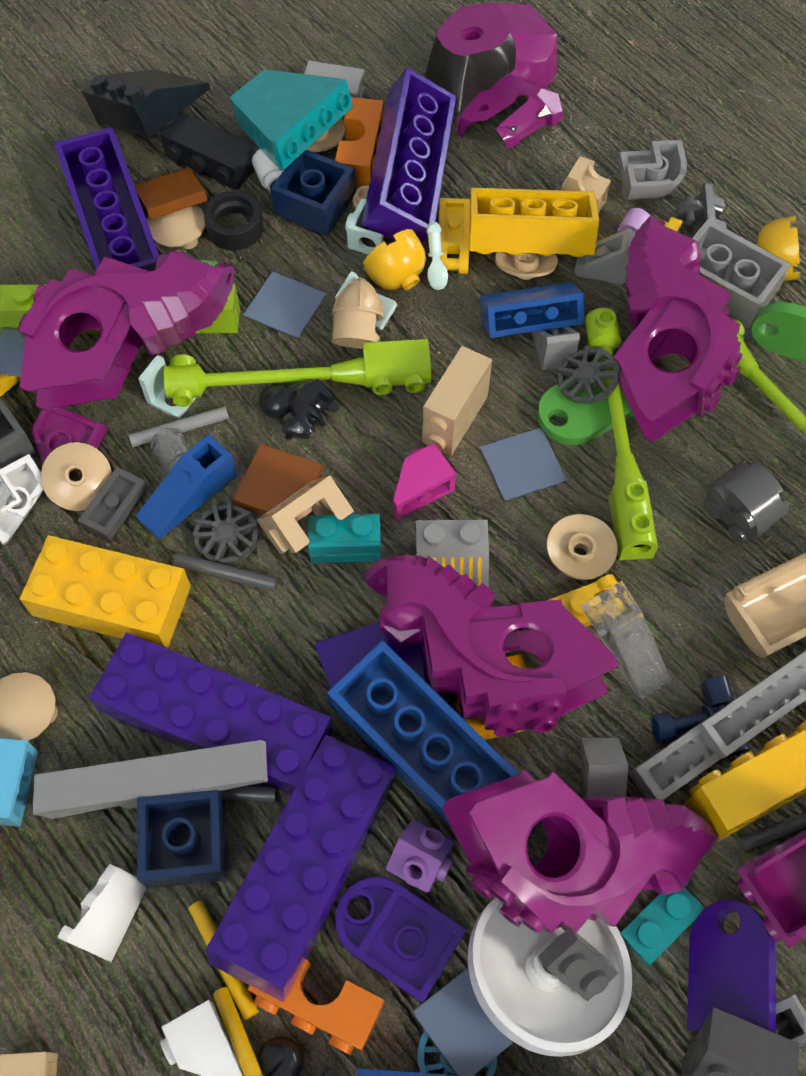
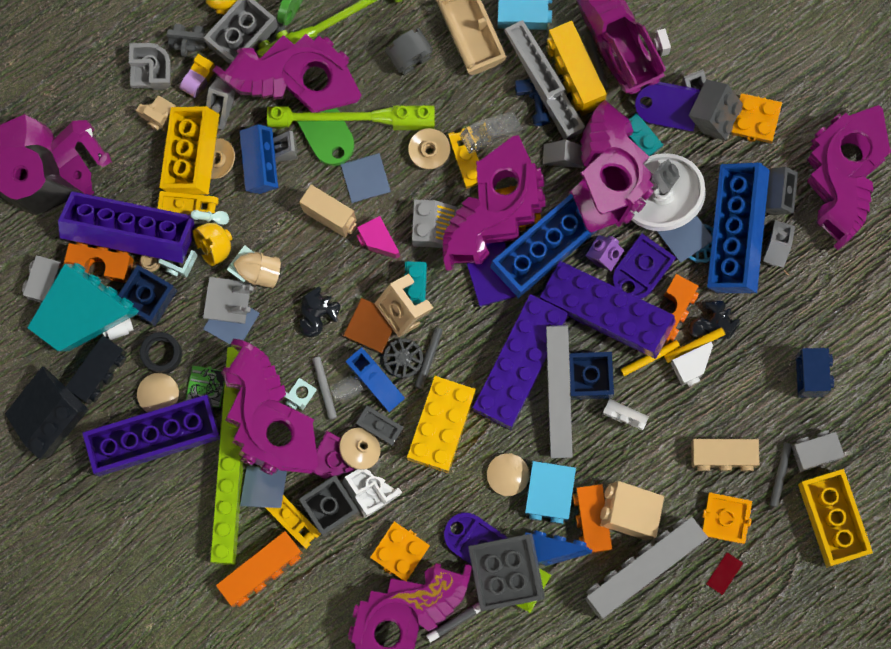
camera: 80 degrees left, 15 degrees up
(170, 193) = (134, 395): dark orange tile -> none
(310, 292) = (227, 300): none -> light grey plate
(381, 367) = (294, 261): lime bar -> none
(588, 375) = (312, 130): dark grey wheel -> none

